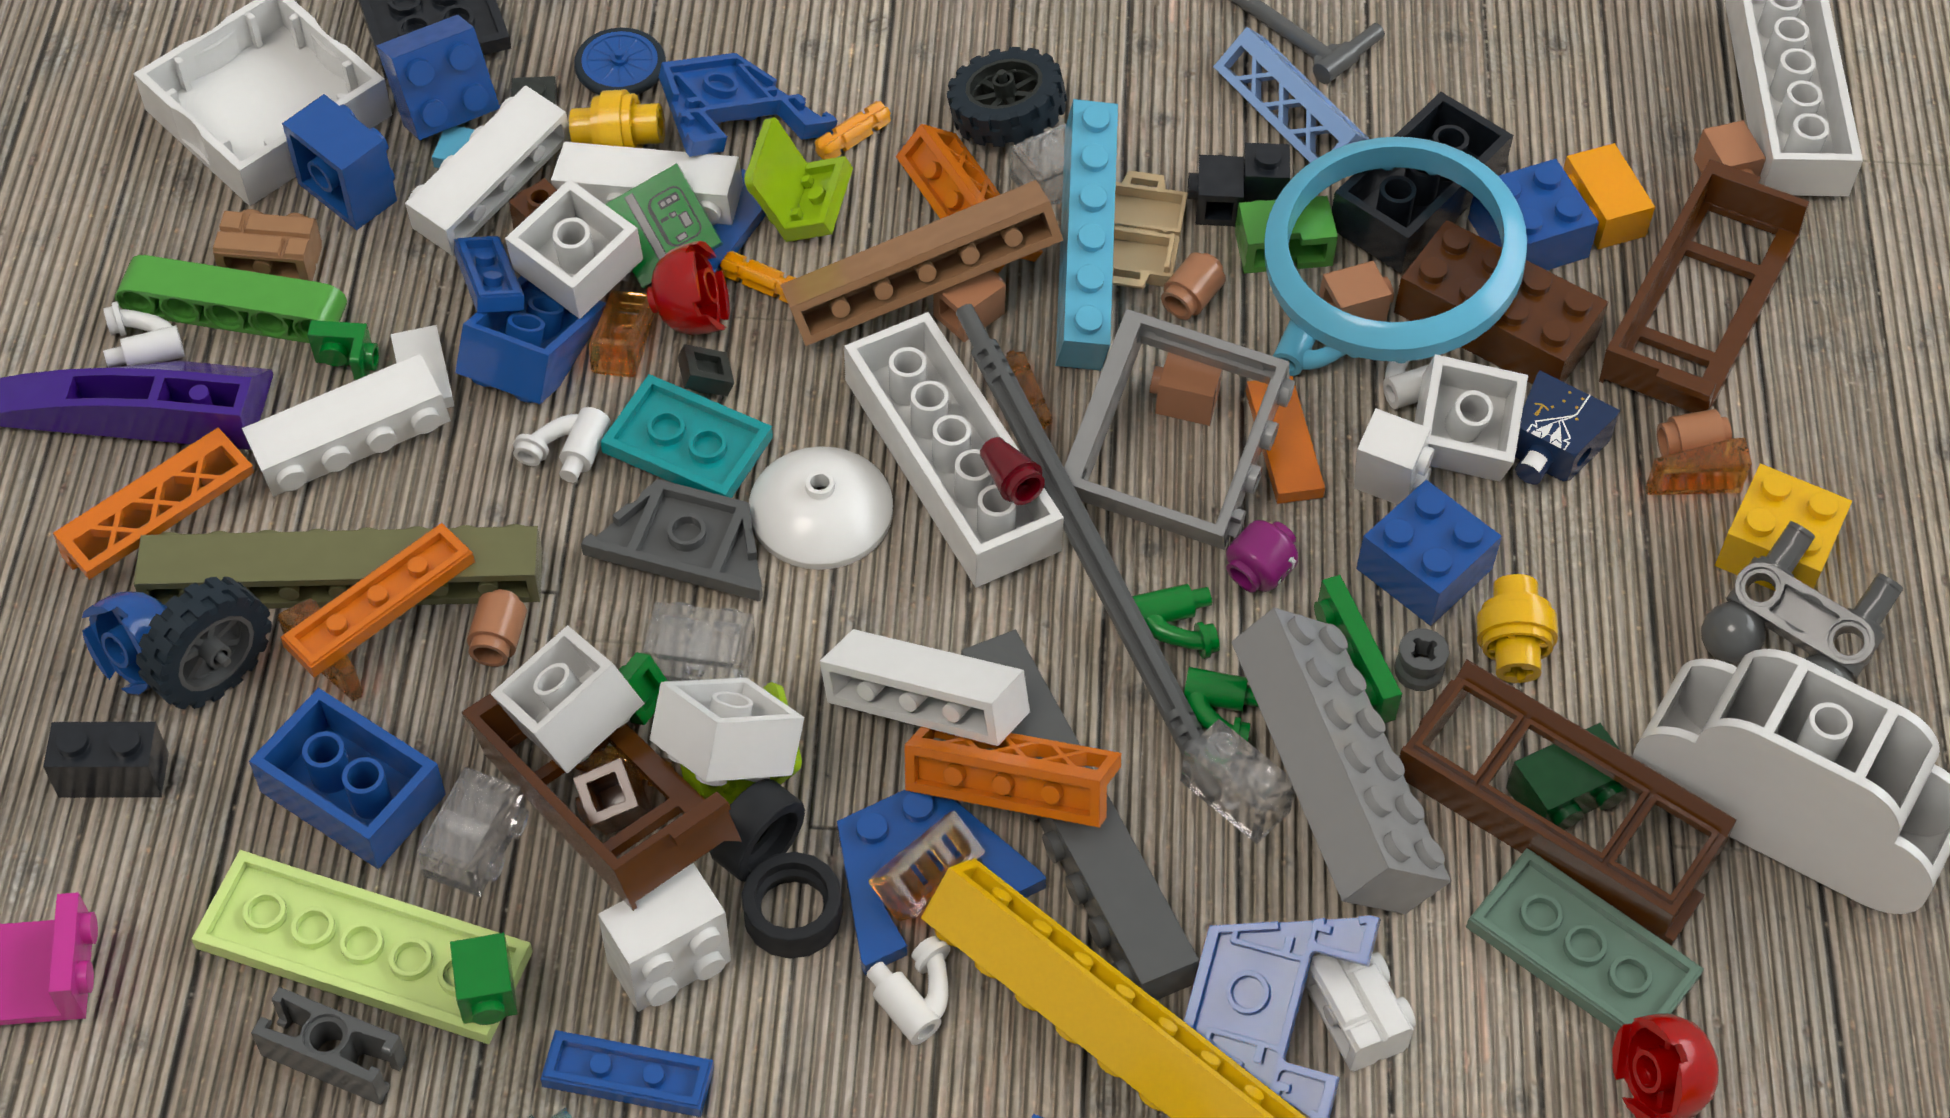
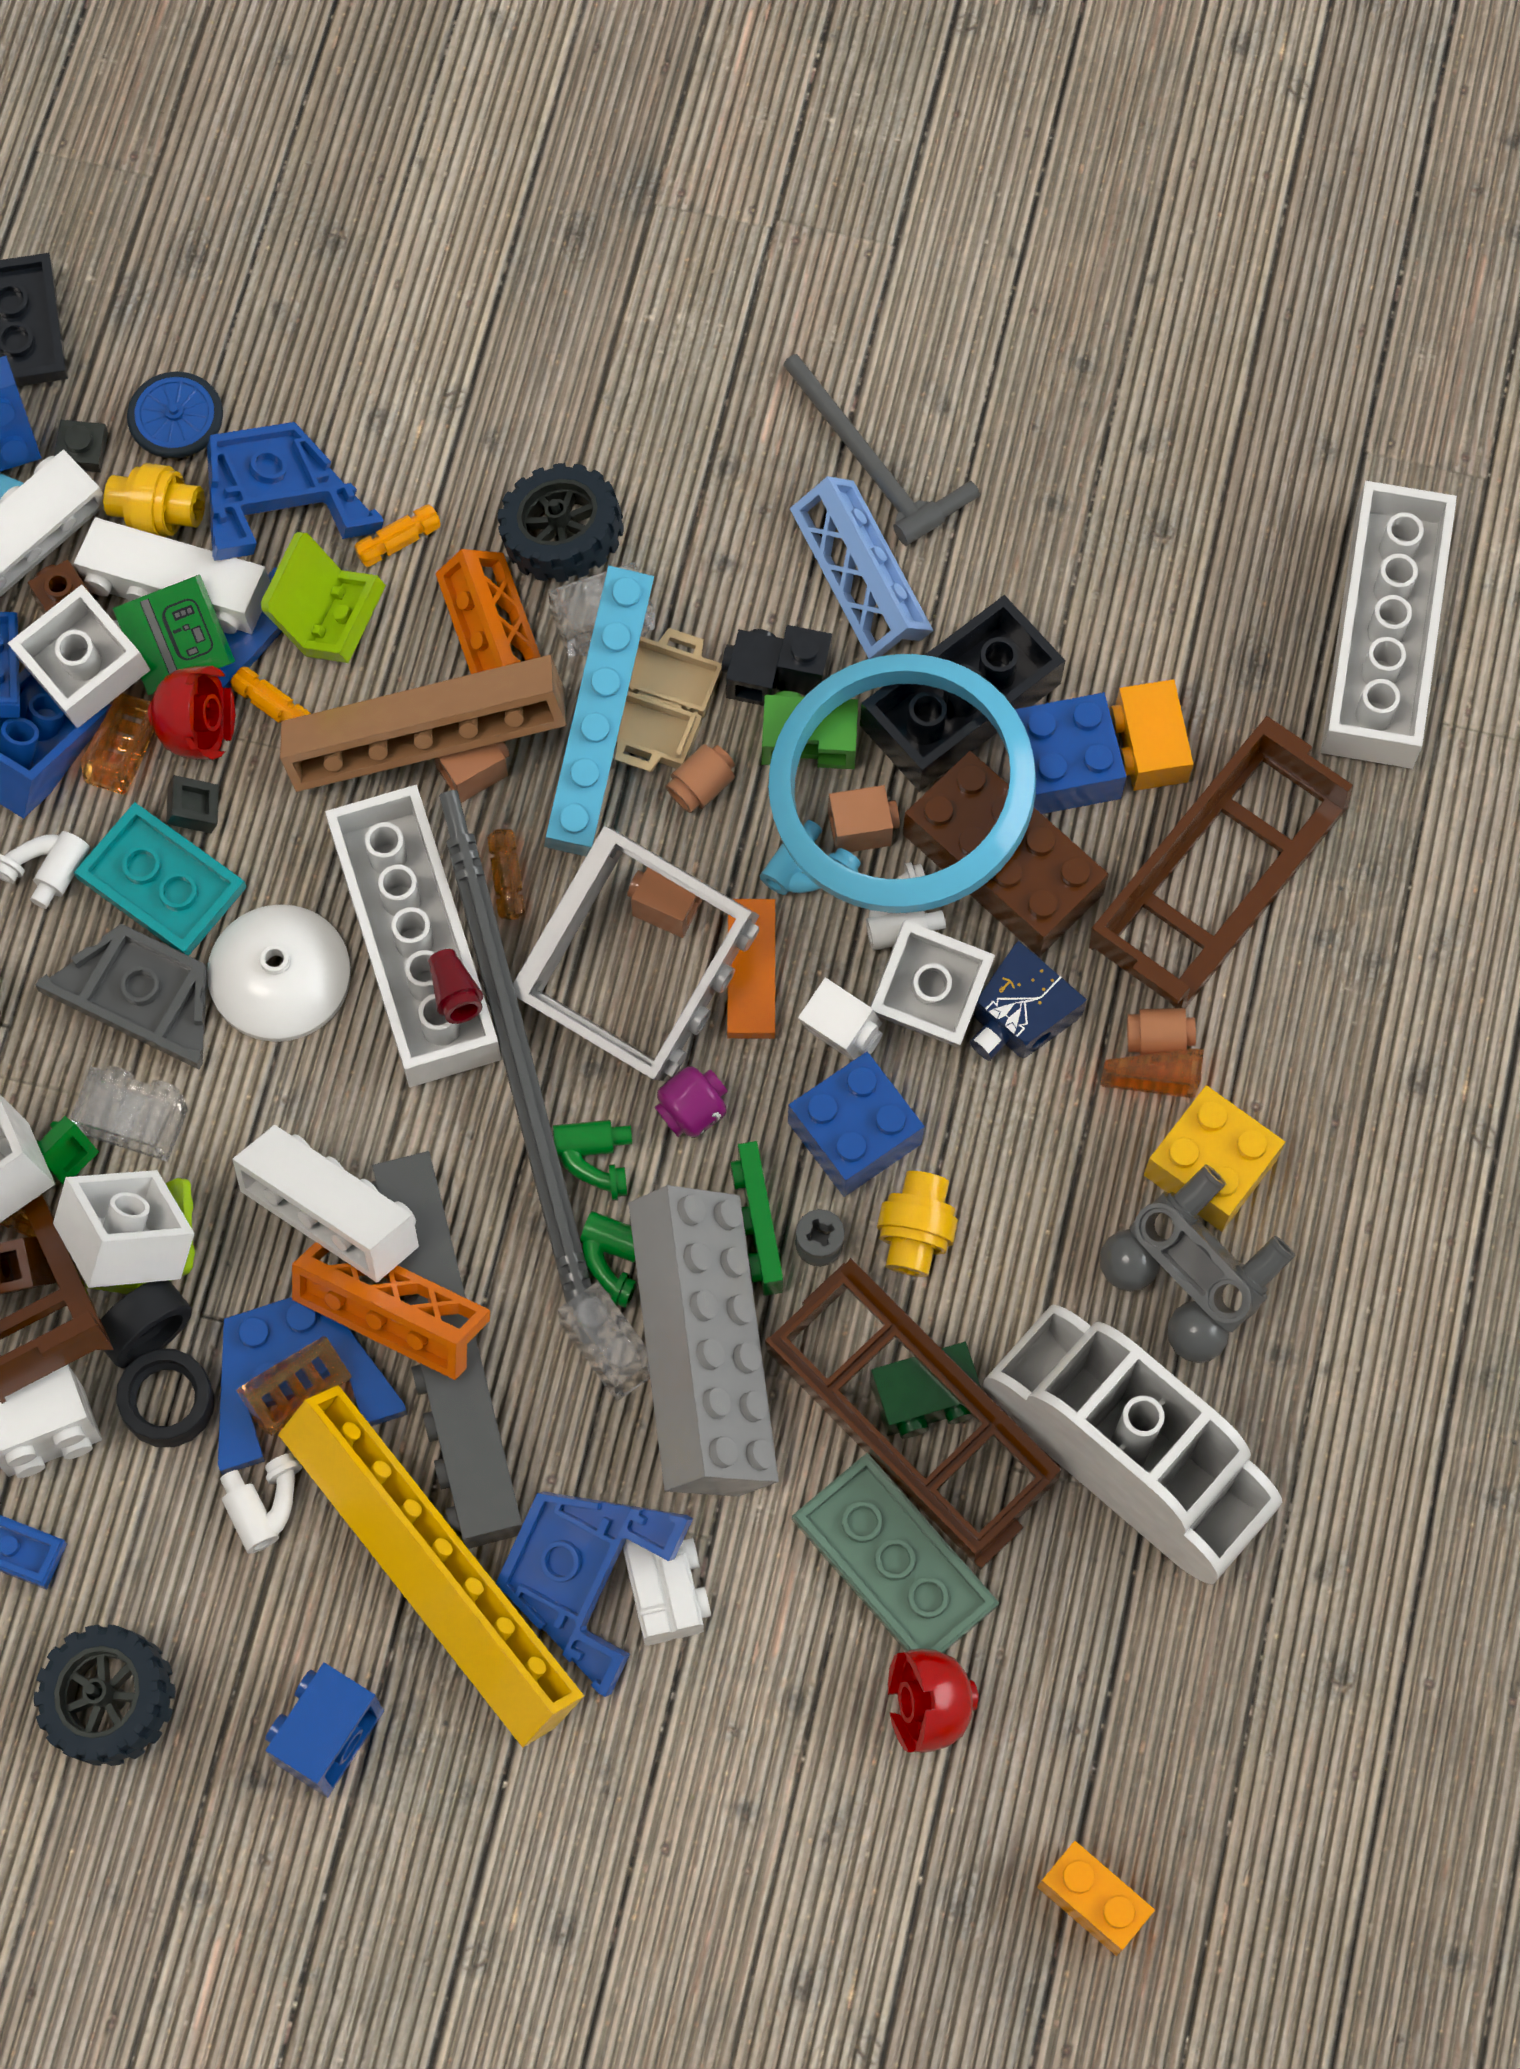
camera: 10 degrees right, 15 degrees up
(1732, 146) = (1298, 704): nougat brick -> none

